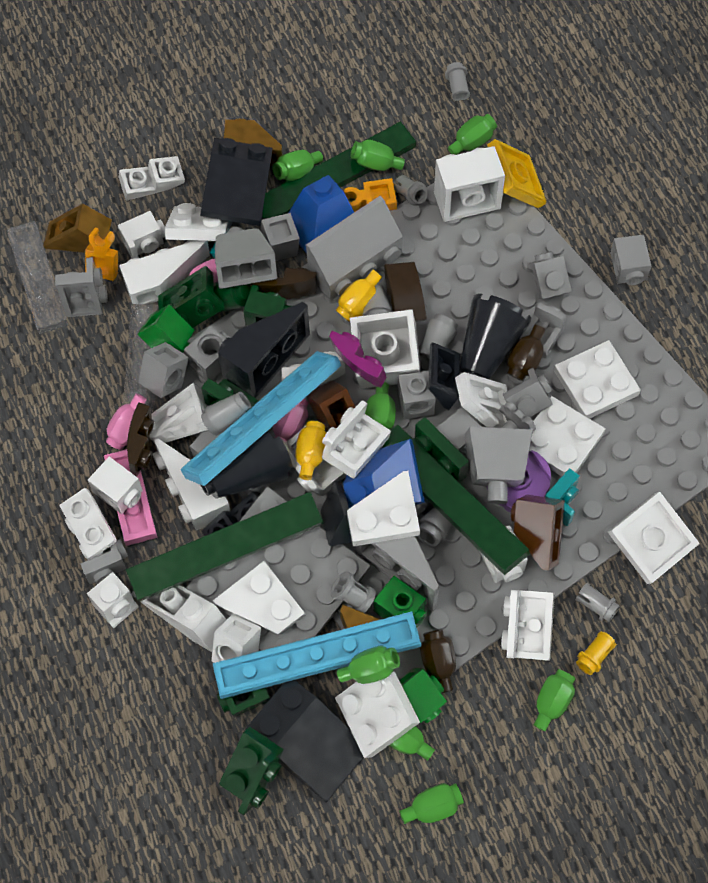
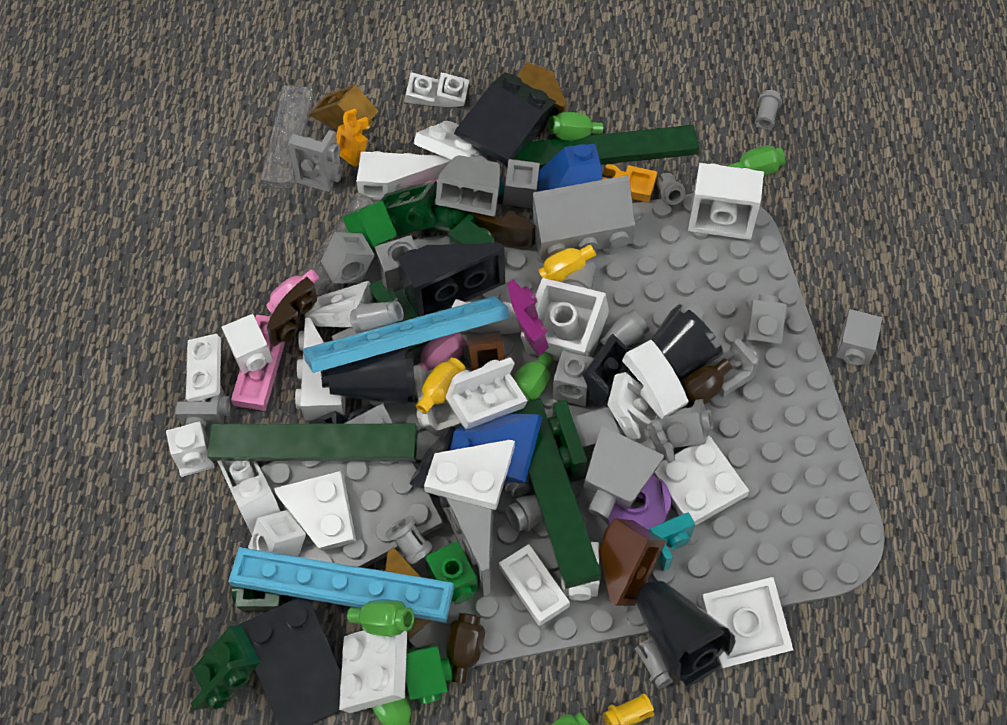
camera: 25 degrees right, 5 degrees down
(142, 234) = (398, 134): white brick -> none
(375, 156) = (652, 146): bright green plant -> none
(405, 289) = (615, 276): dark brown slope -> none
(471, 583) = (534, 585): none -> white plate
(499, 371) = (661, 385): none -> white slope
(520, 175) = (781, 212): yellow tile -> none
(529, 624) = (570, 652): white bracket -> none
(597, 380) = (765, 440): white plate -> none
(610, 567) = (683, 633): none -> black cone

